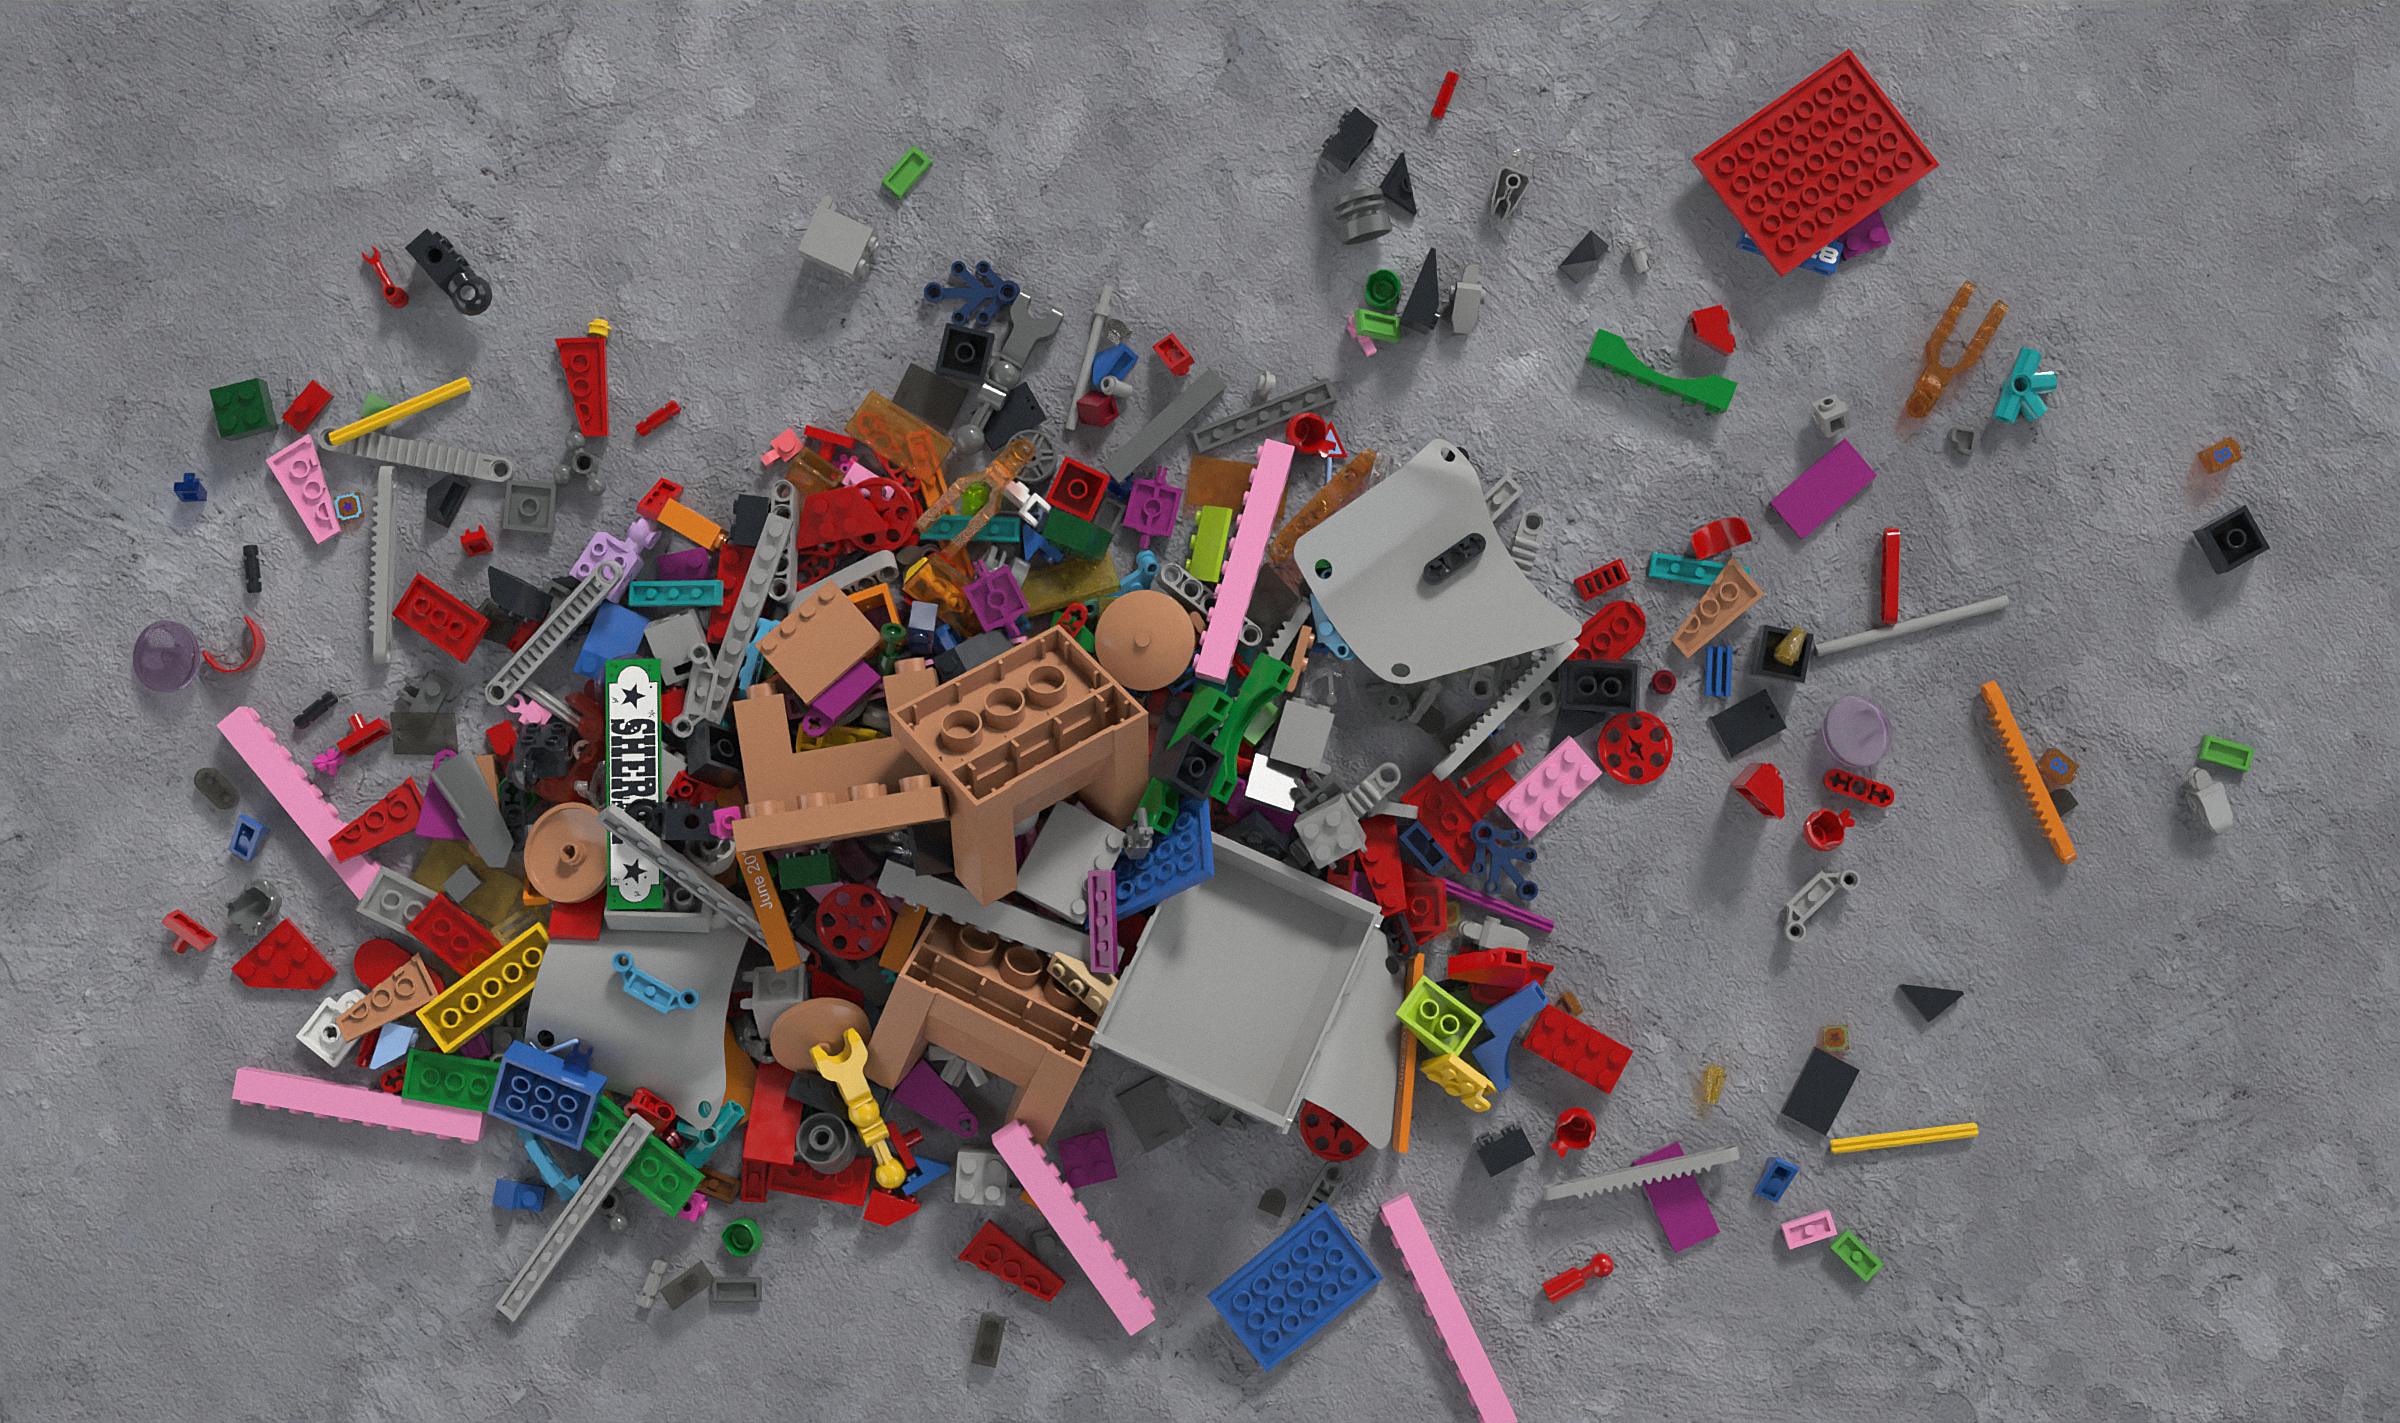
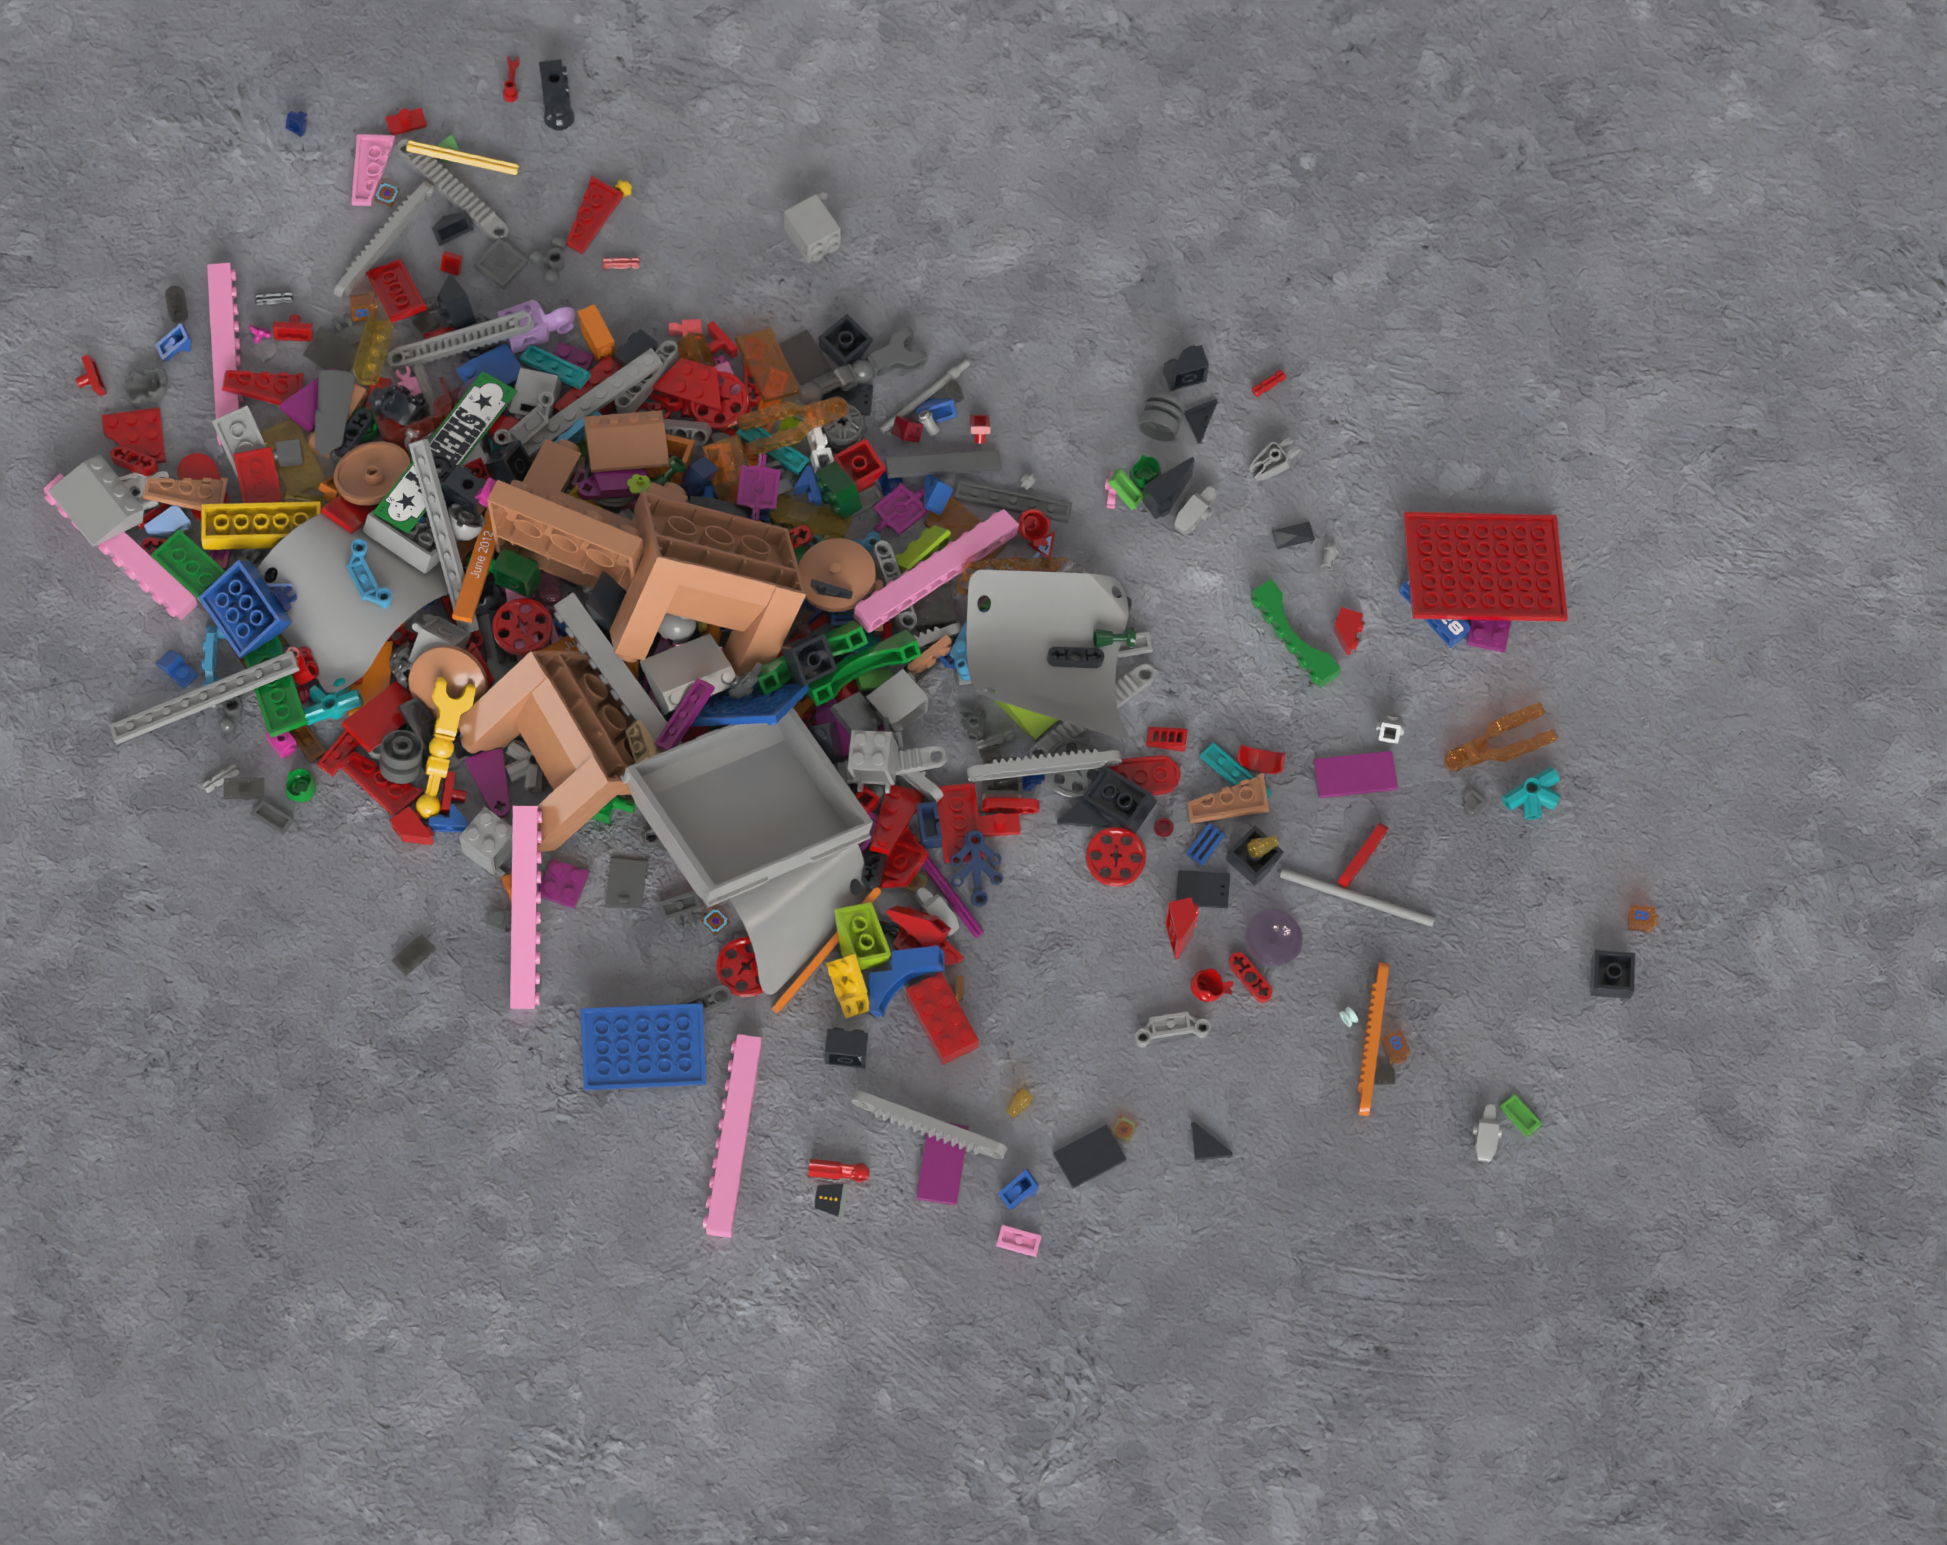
camera: 30 degrees right, 20 degrees down
(166, 656) = (206, 207): clear purple piece -> none
(243, 409) = (366, 97): dark green brick -> none
(252, 569) = (299, 192): black axle -> none
(256, 656) = (258, 243): red piece -> none
(300, 1079) = (97, 501): none -> light grey slope
(312, 1005) = (145, 465): none -> red beam
(419, 658) = (362, 304): none -> clear orange brick
(466, 706) = (372, 350): none -> clear yellow panel
(657, 497) = (580, 303): red tile -> none
(870, 688) = (638, 484): none -> lime plant
(906, 172) = (887, 218): bright green tile -> none
(977, 293) = (878, 314): dark blue plant -> none
(1004, 1256) = (463, 910): red wing -> none
(1157, 670) = (829, 590): none -> black tile
(1180, 467) = (936, 494): none -> blue slope
(1273, 1201) = (667, 990): clear smoke tile -> none
(1472, 515) = (1105, 637): none -> dark green piece
(1549, 787) = (1039, 844): bright pink plate -> none
(1573, 1129) = (903, 1069): red hat -> none
(1589, 1307) = (832, 1198): none -> black sticker
(1856, 1255) = (1040, 1279): bright green plate -> none
(1904, 1138) = (1126, 1224): yellow axle -> none
(1987, 765) = (1348, 1016): none -> light aqua bush

